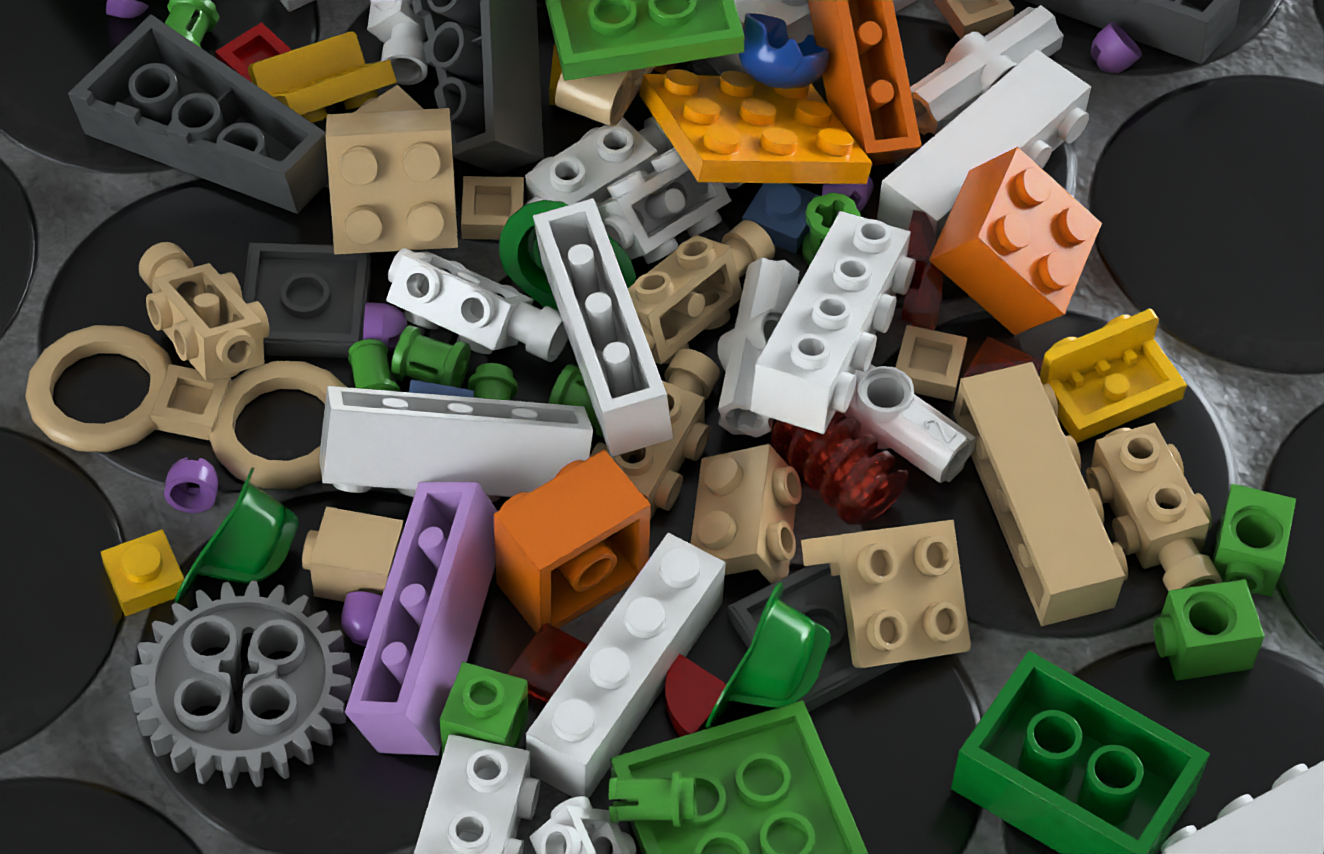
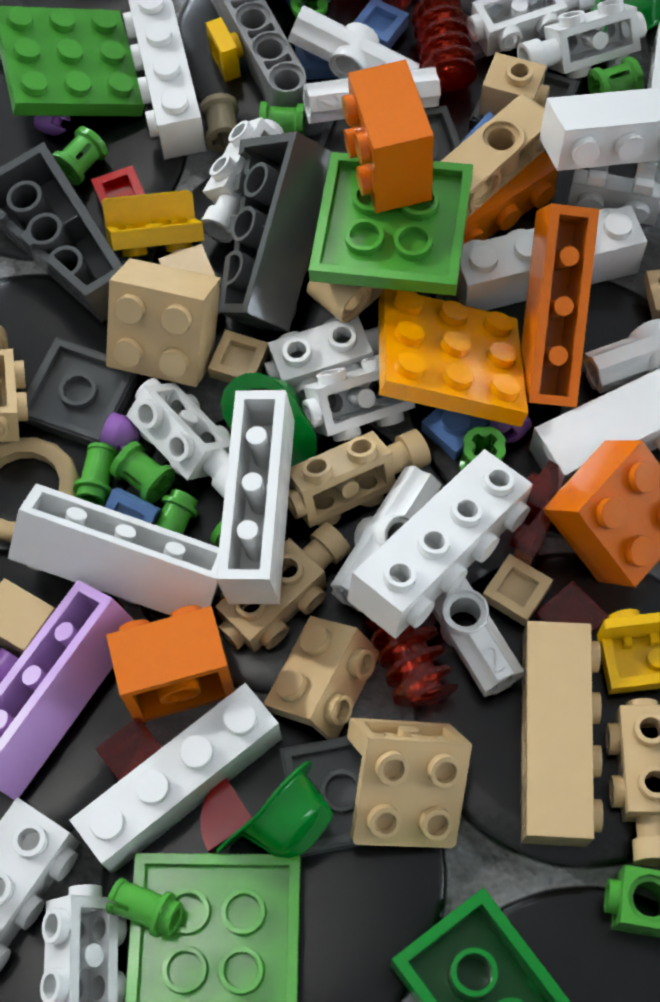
camera: 25 degrees right, 10 degrees up
(485, 707) = (56, 785): bright green brick -> none
(775, 58) = (489, 301): blue hair -> none

